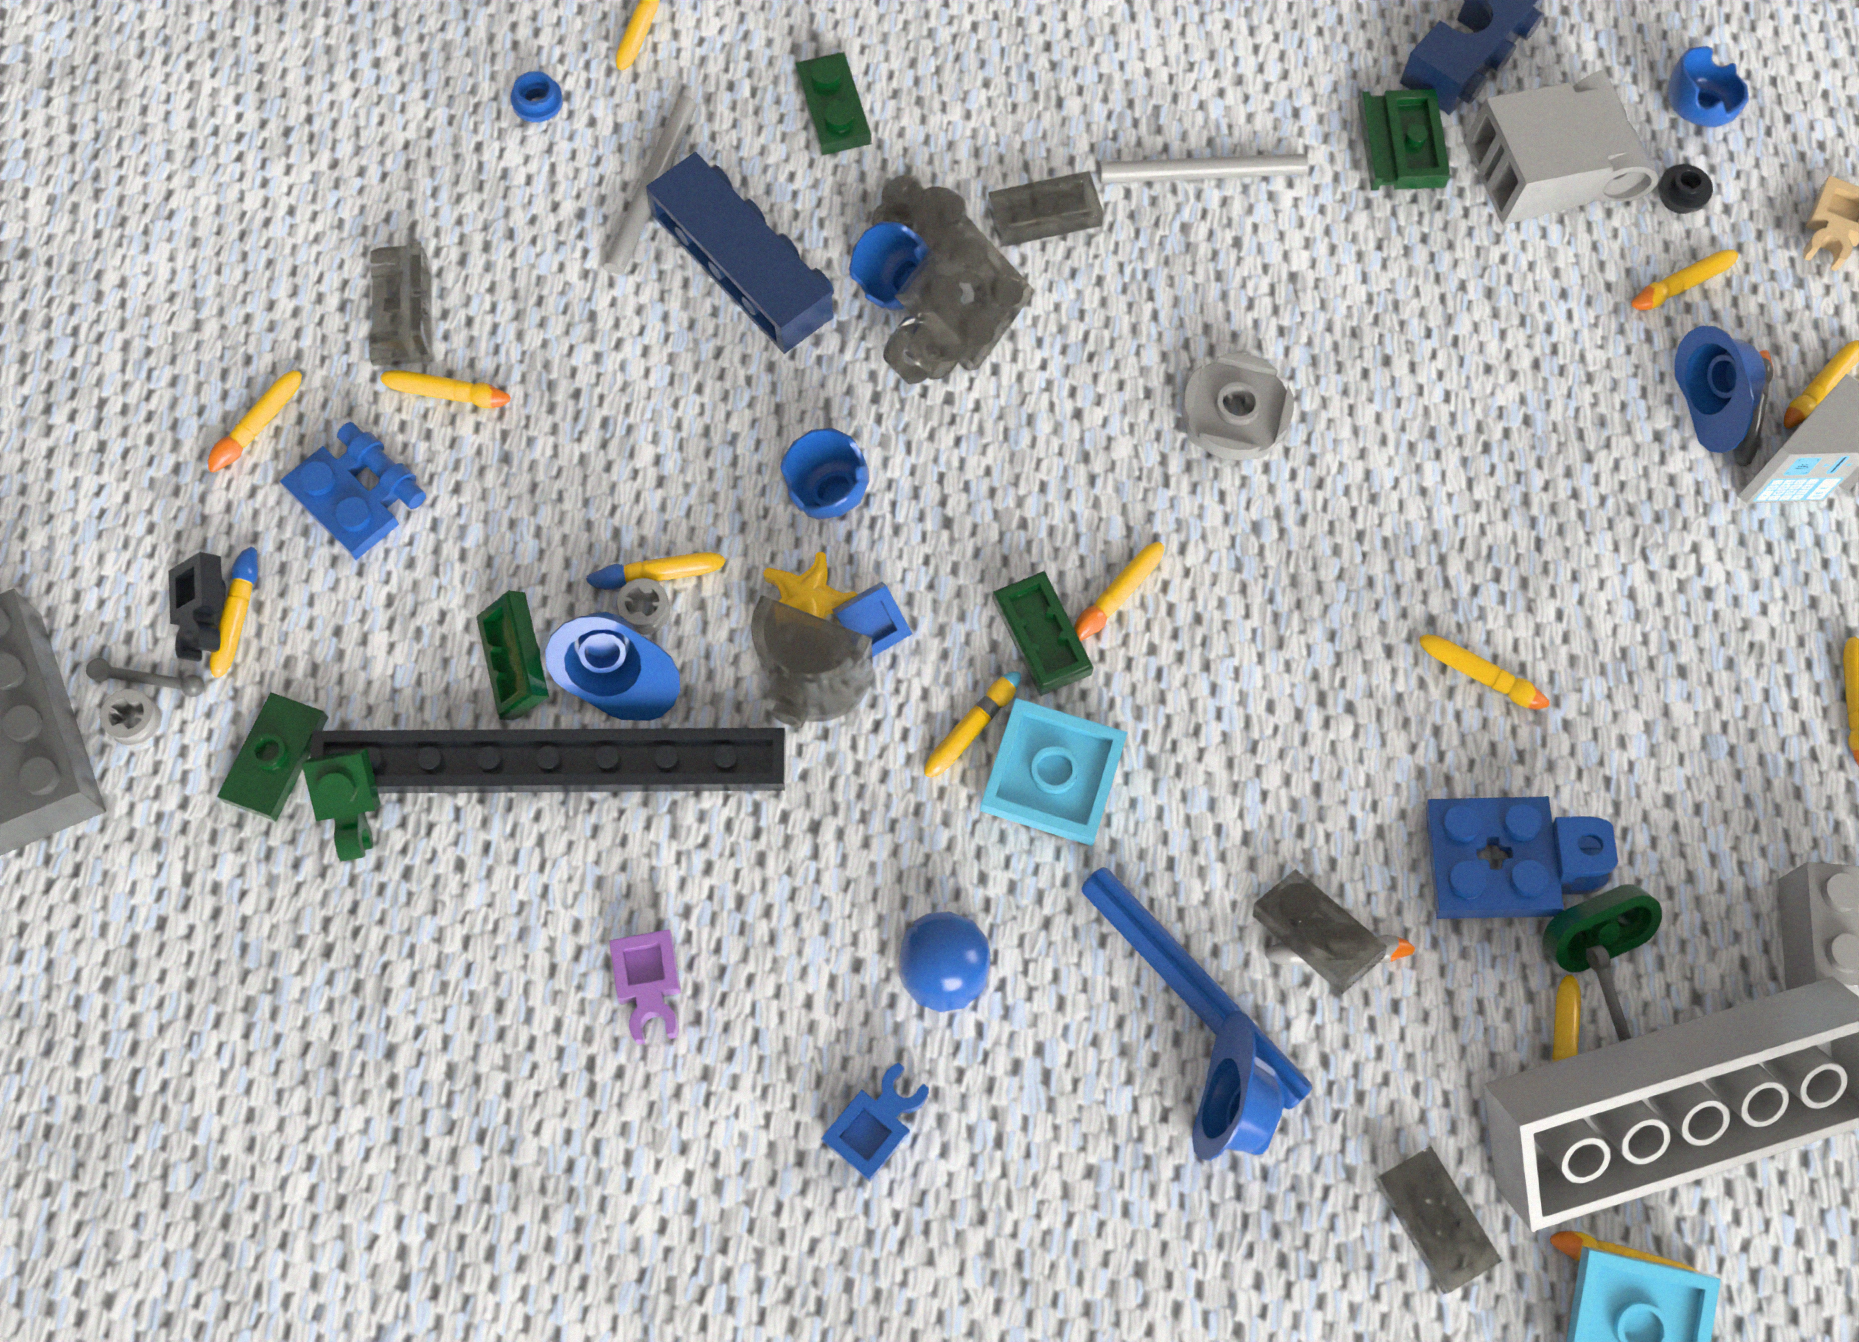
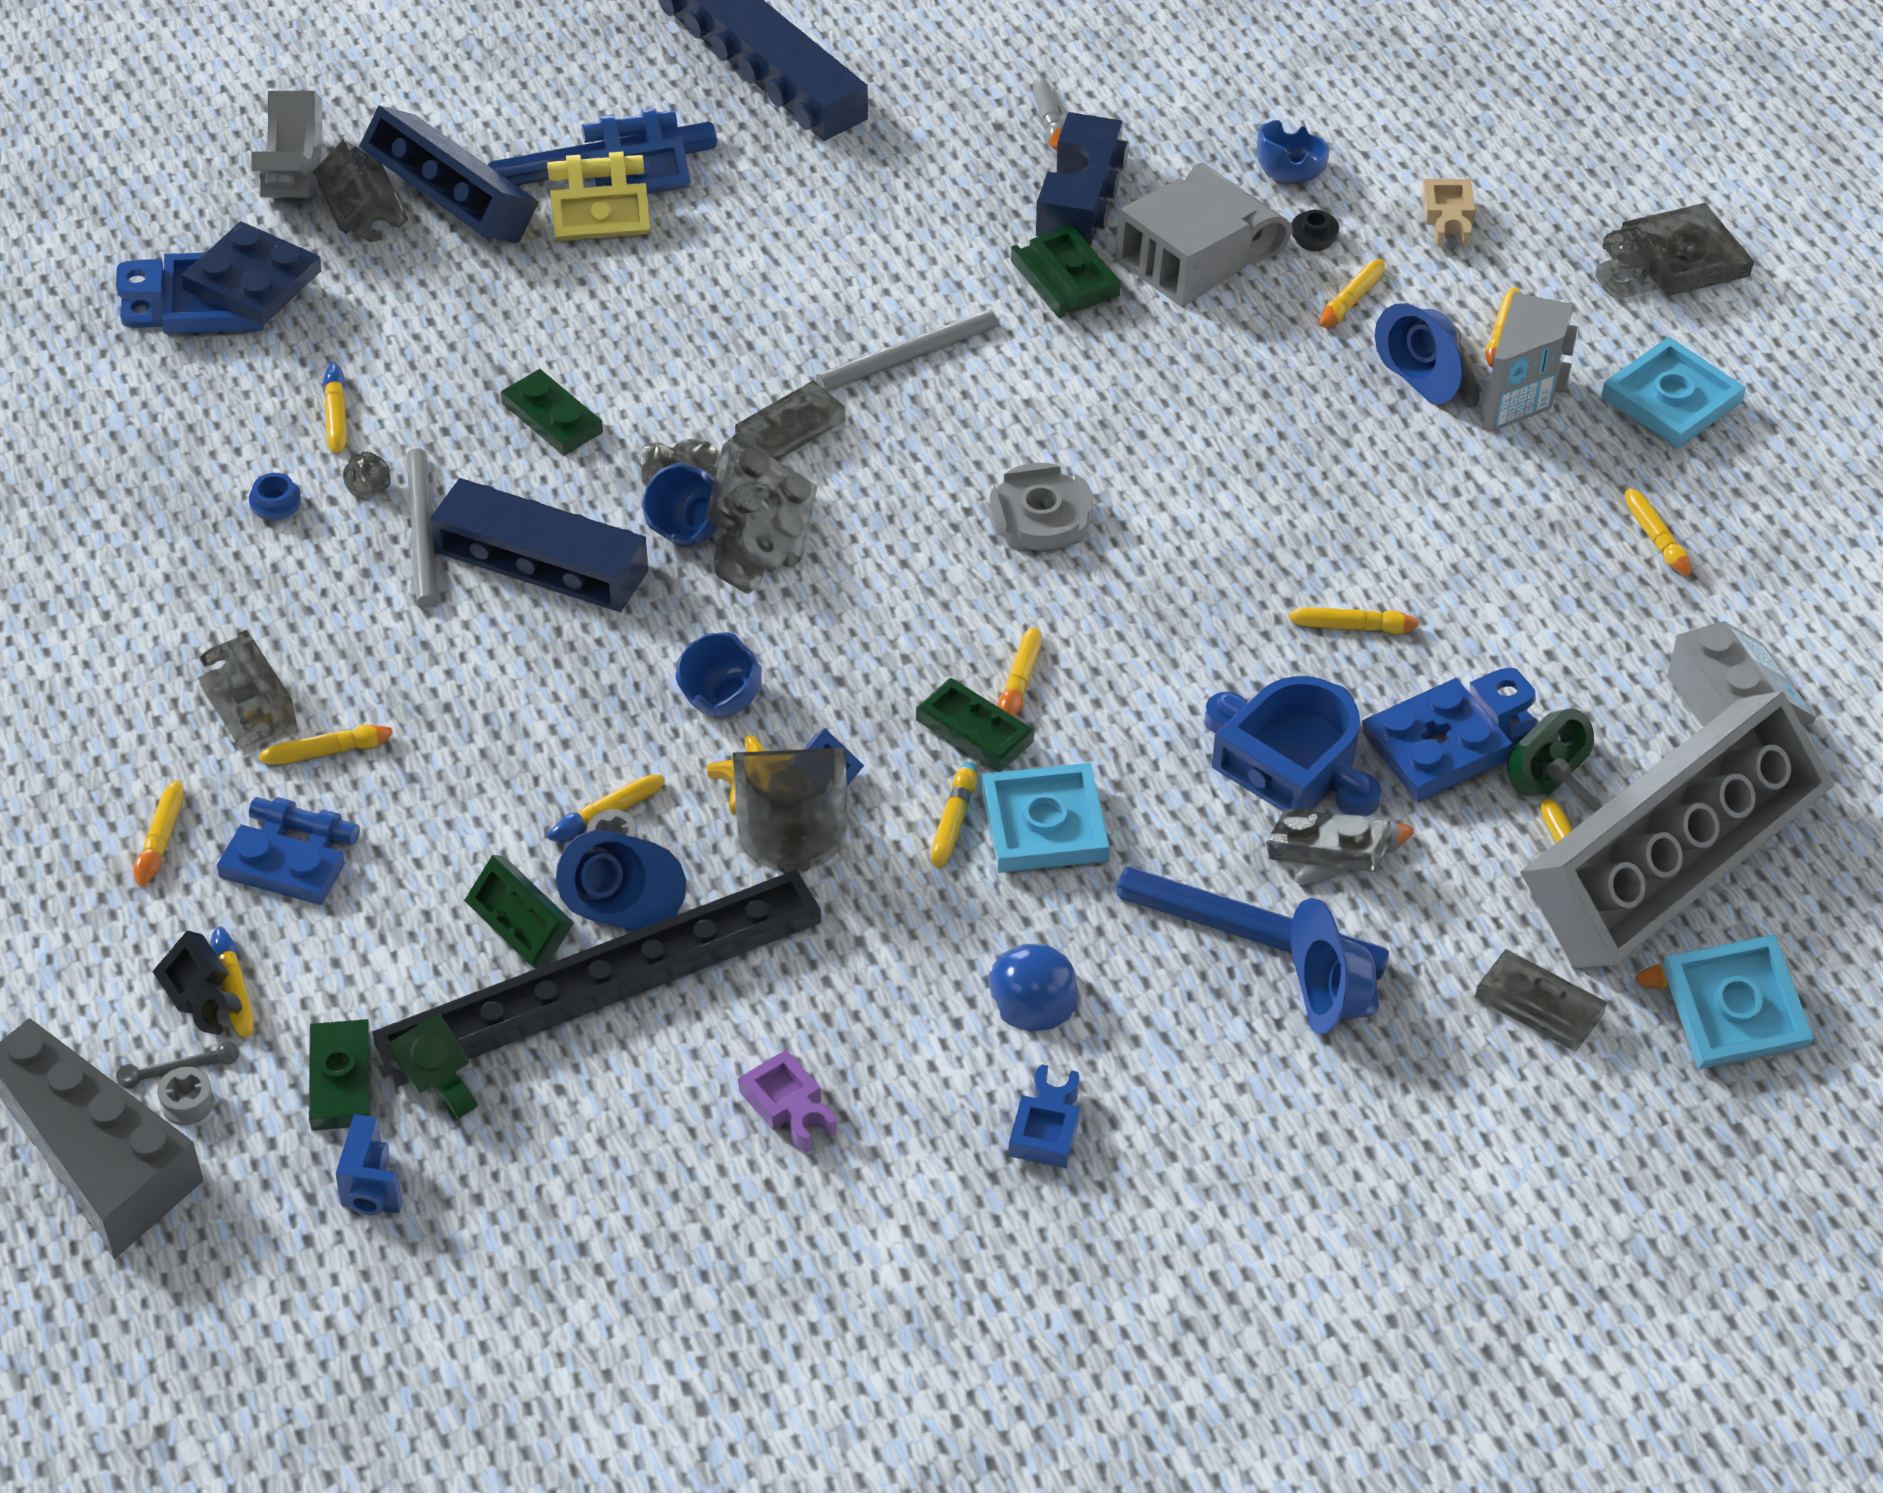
camera: 25 degrees left, 20 degrees down
(233, 867) = (362, 1170): none -> blue bracket
(628, 107) = (366, 475): none -> clear smoke plate
(1342, 799) = (1293, 745): none -> blue piece

